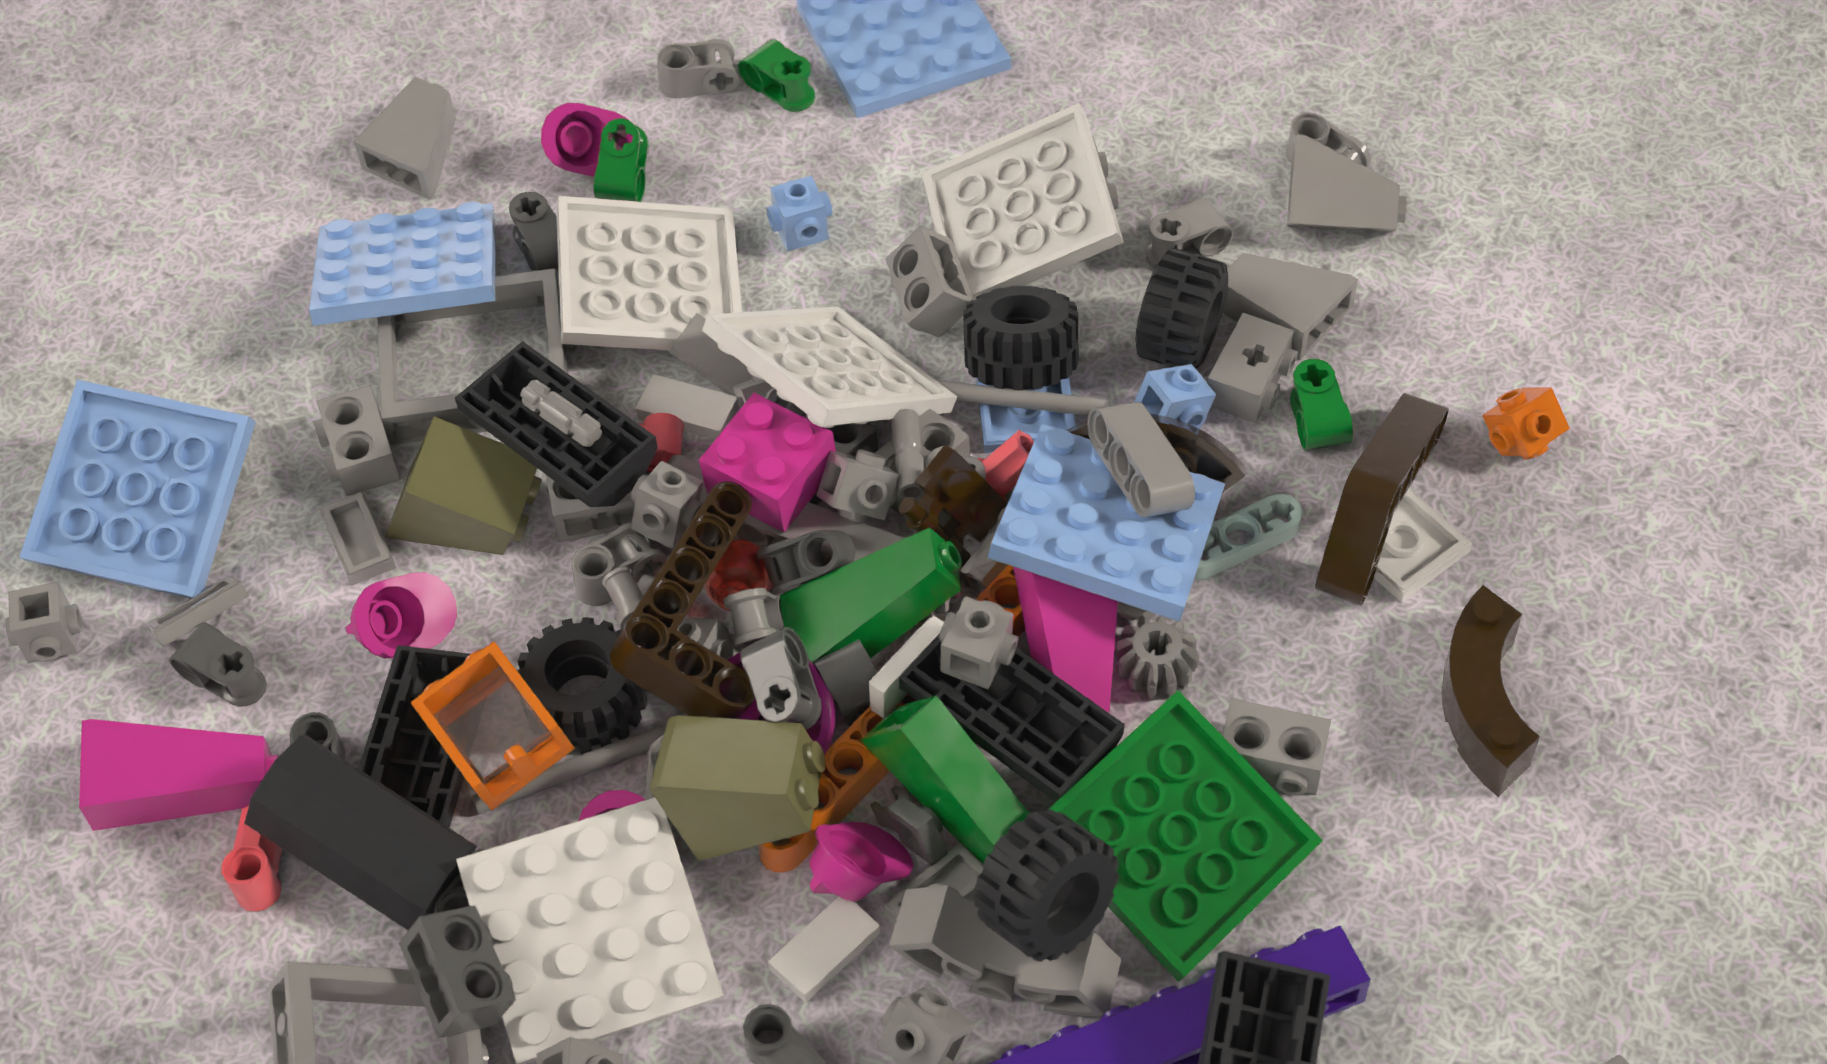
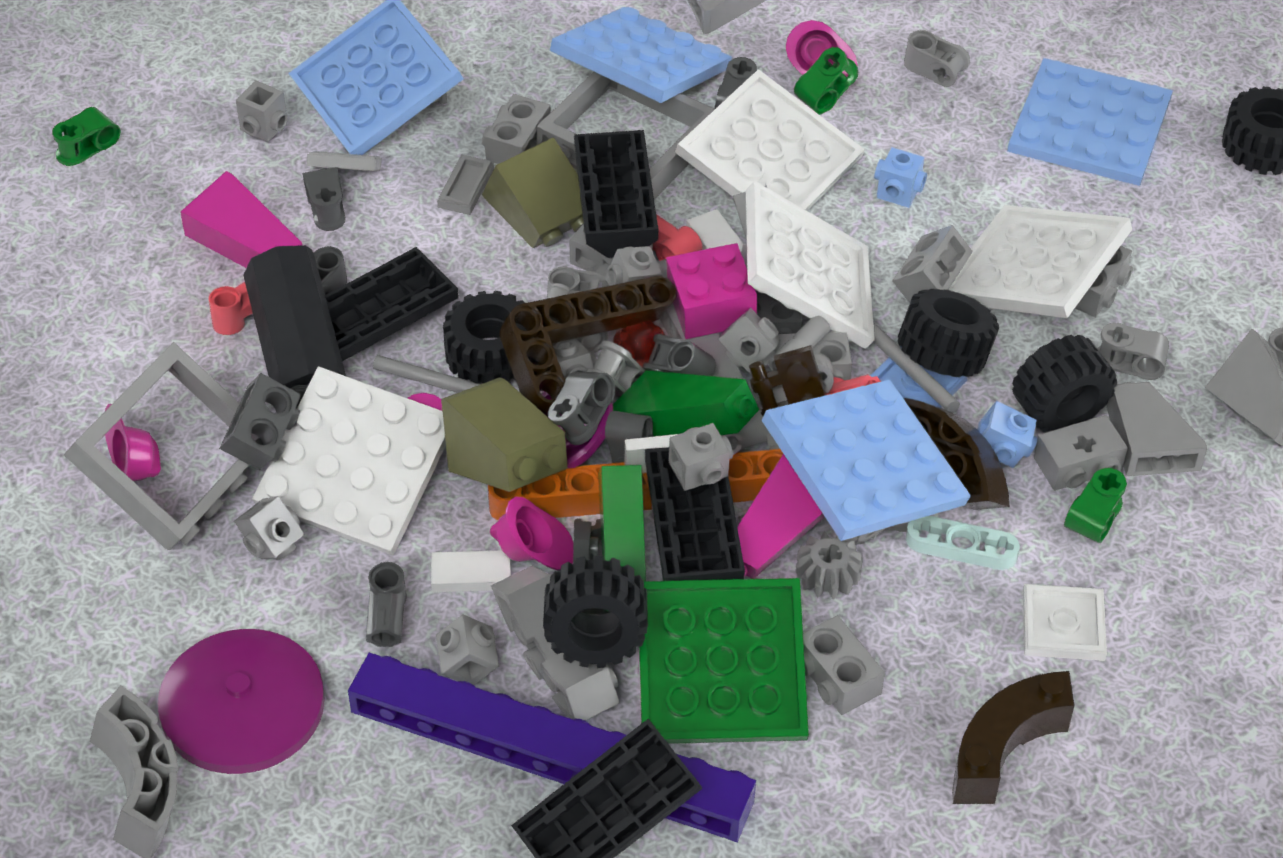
camera: 40 degrees right, 5 degrees down
(404, 612) = (441, 235): dark pink piece -> none
(492, 725) = (409, 316): window -> none
(561, 413) = (617, 179): light grey axle -> none
(779, 75) = (980, 92): green piece -> none
(1141, 459) = (916, 434): light grey beam -> none
(1374, 493) = (1070, 559): dark brown beam -> none
(1525, 422) = (1234, 616): orange brick -> none

